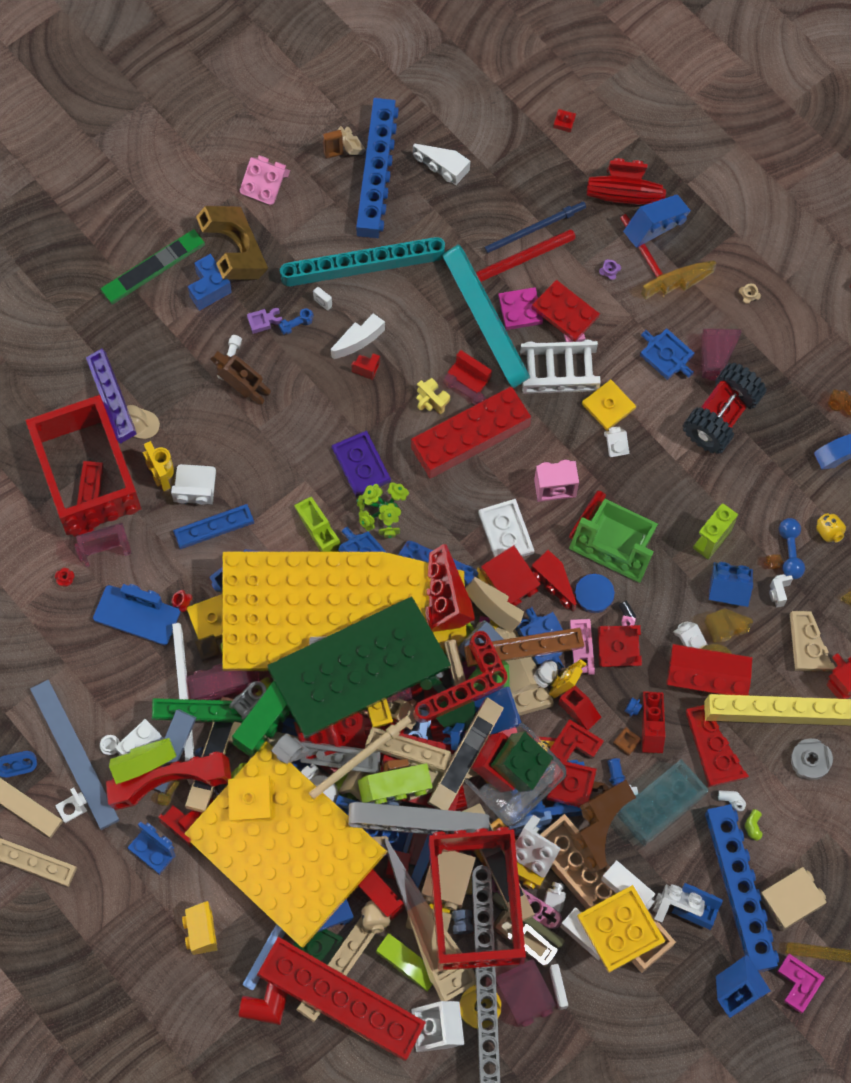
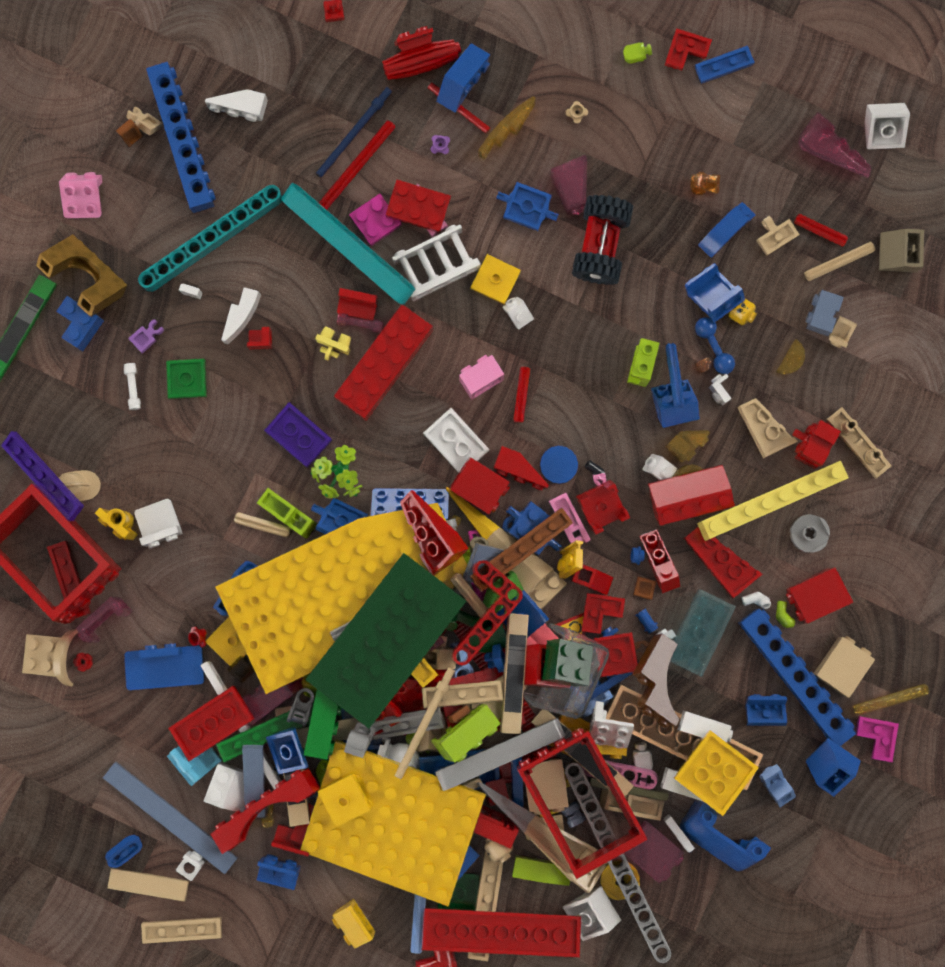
camera: 20 degrees left, 15 degrees up
(35, 556) = (48, 655): none -> tan piece
(108, 744) = (196, 795): white plate -> none
(123, 707) = (196, 768): none -> medium azure plate
(141, 760) = (232, 805): lime slope -> none
(157, 679) = (211, 723): none -> red plate
(213, 526) = (193, 554): blue tile -> none
(216, 732) = (287, 751): none -> blue slope
(240, 376) = (150, 403): reddish brown hinge -> none
(282, 371) = (186, 378): none -> green tile
(290, 527) = (262, 524): none -> tan axle
(304, 318) = (183, 316): blue bar -> none
(494, 604) = (478, 520): tan slope -> none
(546, 674) = (549, 561): white arm -> none
(595, 1012) = (698, 827): none -> blue windscreen
(616, 540) = (558, 407): bright green windscreen -> none
(675, 896) = (750, 715): white bracket -> none
(676, 981) = (777, 785): none -> medium blue brick
(741, 555) = (675, 377): none -> blue axle
(795, 818) = (818, 595): none -> red slope
(810, 499) = (714, 293): none -> blue panel
(828, 264) = (636, 52): none -> lime arm

